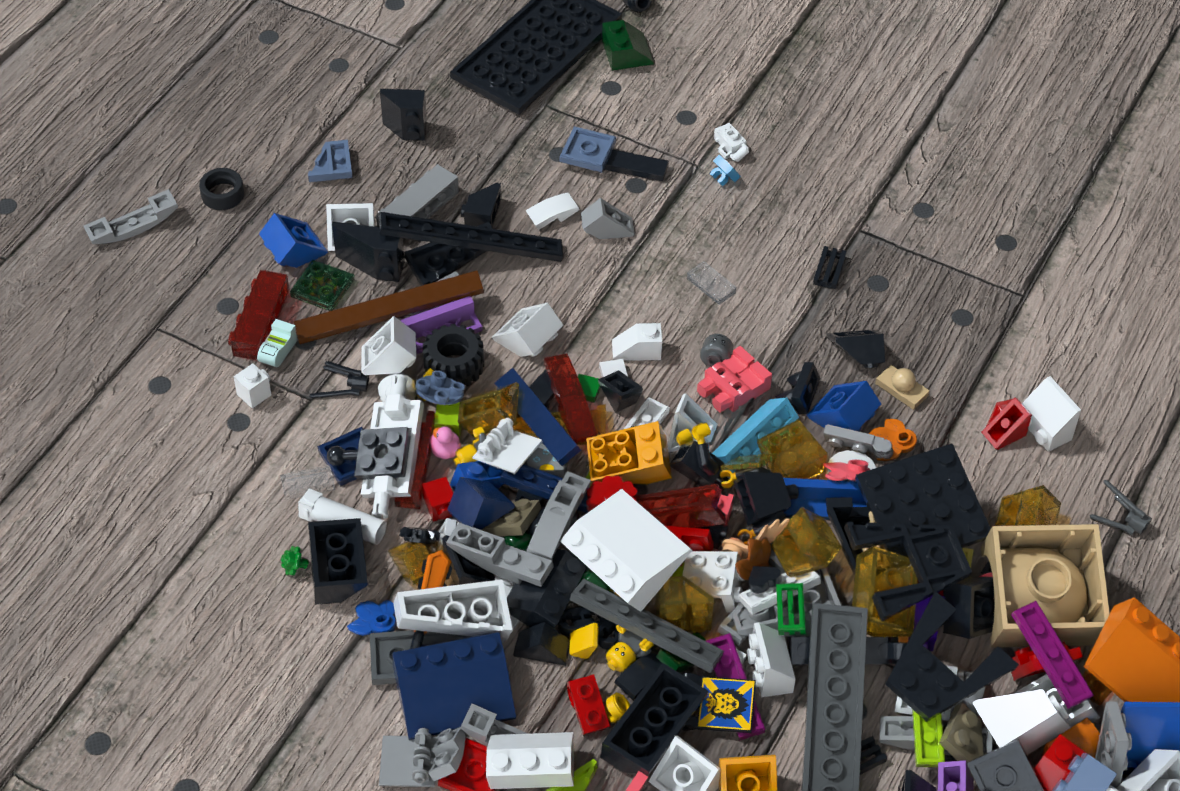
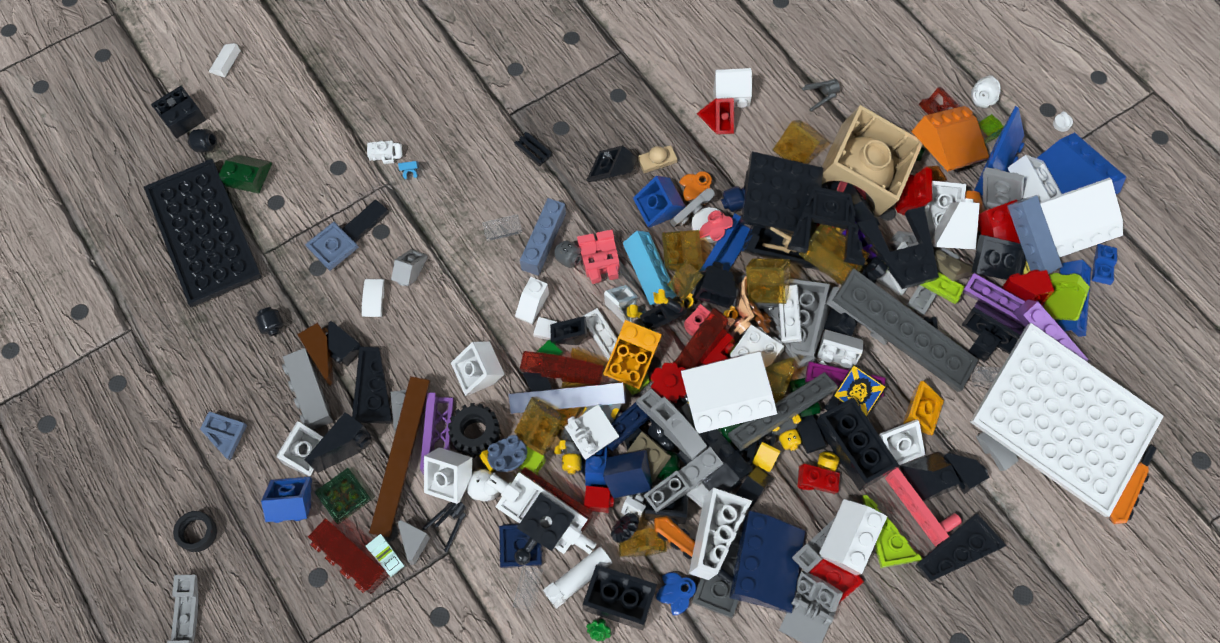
camera: 60 degrees left, 15 degrees up
(252, 385) = (417, 590): white brick -> none
(302, 360) = (413, 541): none -> light grey slope
(404, 112) = (213, 356): black slope -> none
(444, 443) = (553, 472): bright pink animal -> none
(467, 183) = (317, 344): none -> reddish brown slope
(470, 236) = (372, 368): black tile -> none
(471, 140) = (269, 321): none -> black head
(727, 318) = (543, 236): none -> sand blue brick
(763, 578) = (781, 319): black tile -> none
(791, 628) = (828, 328): green tile -> none
(805, 385) = (633, 223): black tile -> none
(1052, 654) = (928, 184): magenta tile -> none

